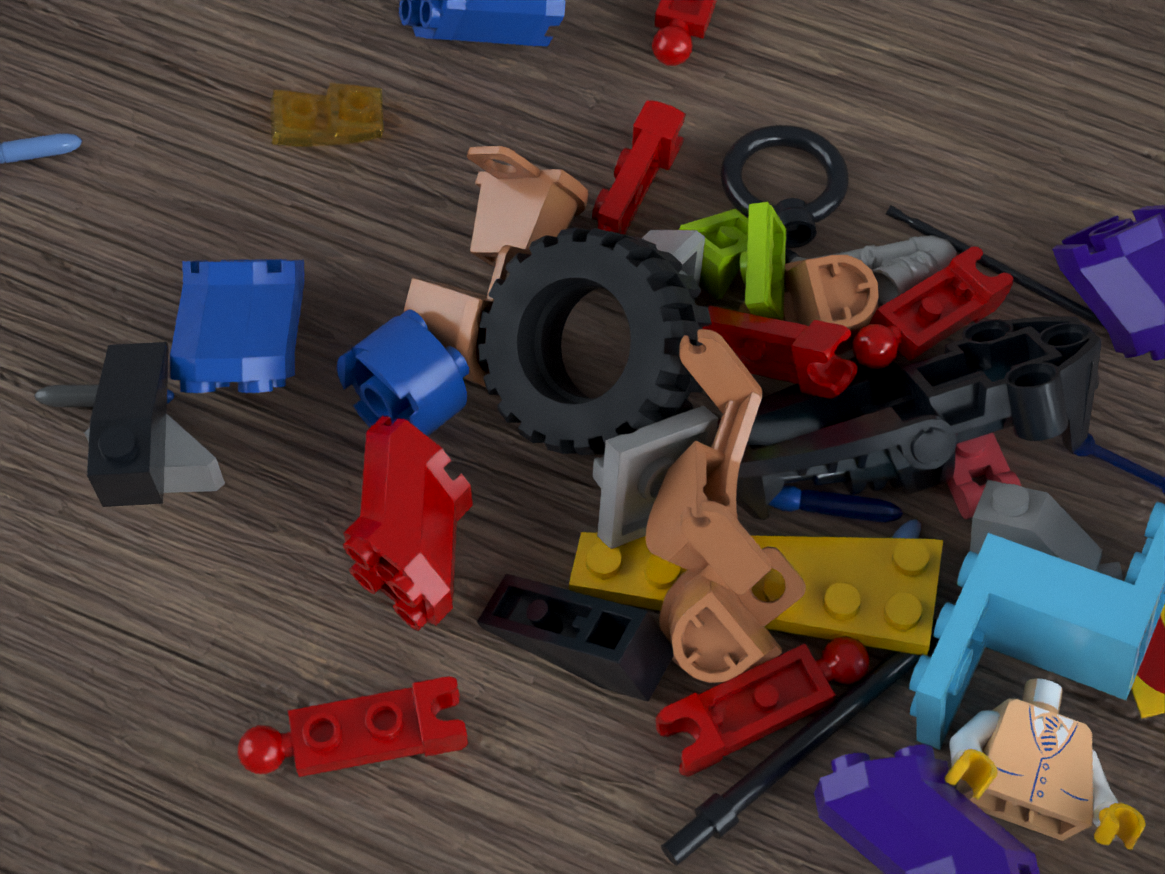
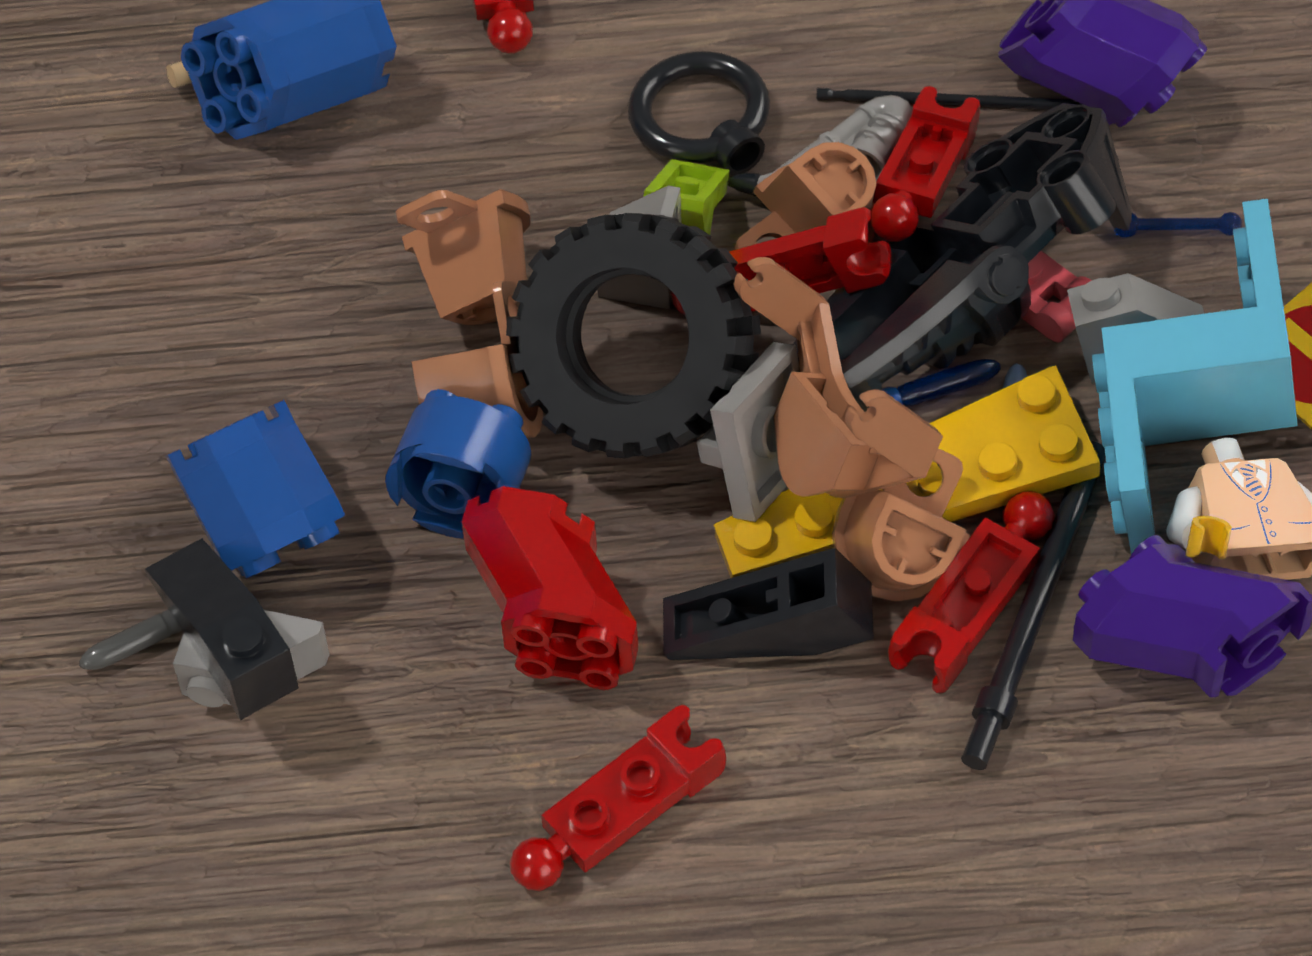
camera: 25 degrees left, 5 degrees down
(339, 117) = (208, 256): clear yellow slope -> none
(653, 146) = (552, 140): red plate -> none
(764, 262) = (738, 191): lime plate -> none

